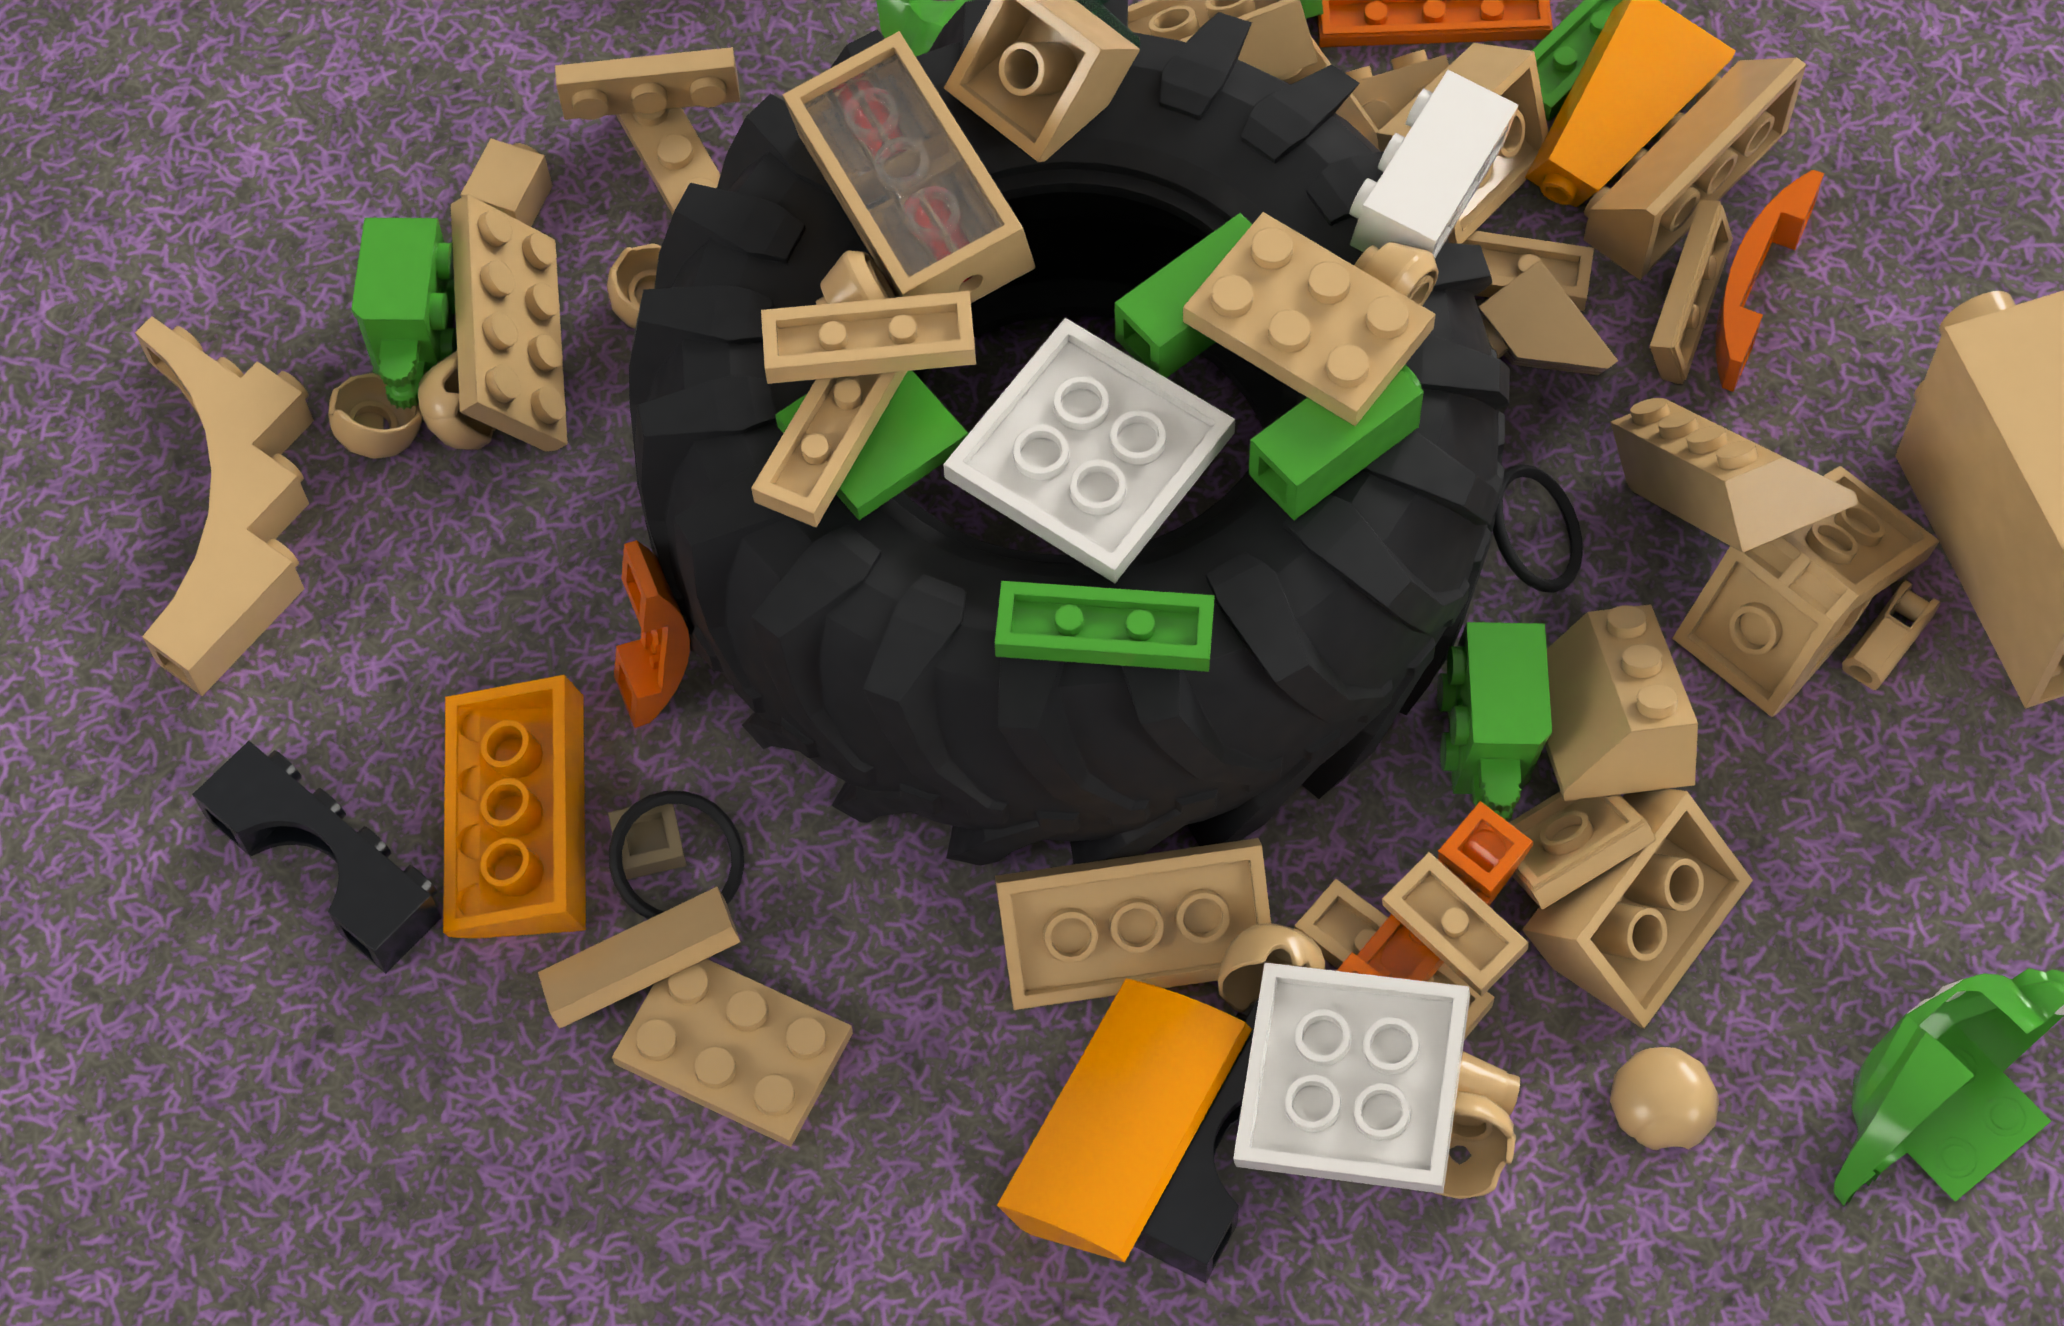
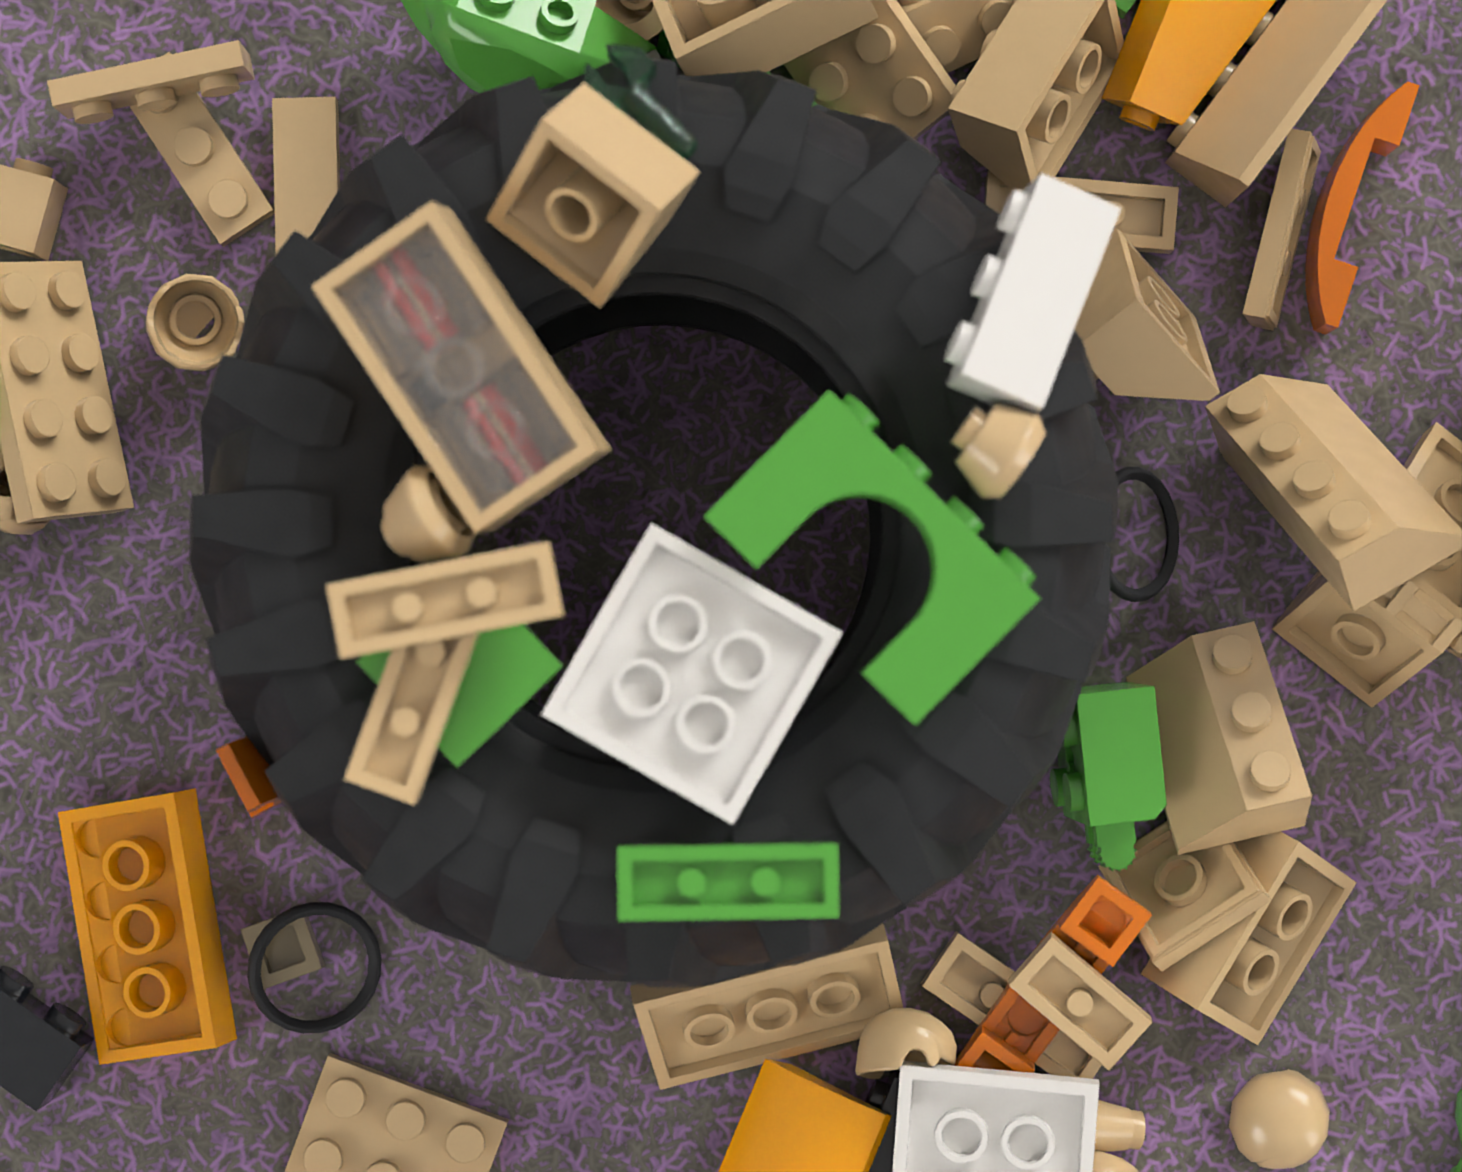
camera: 10 degrees left, 25 degrees up
(638, 957) = (293, 1079): tan tile -> none
(1309, 318) = (914, 526): tan plate -> none

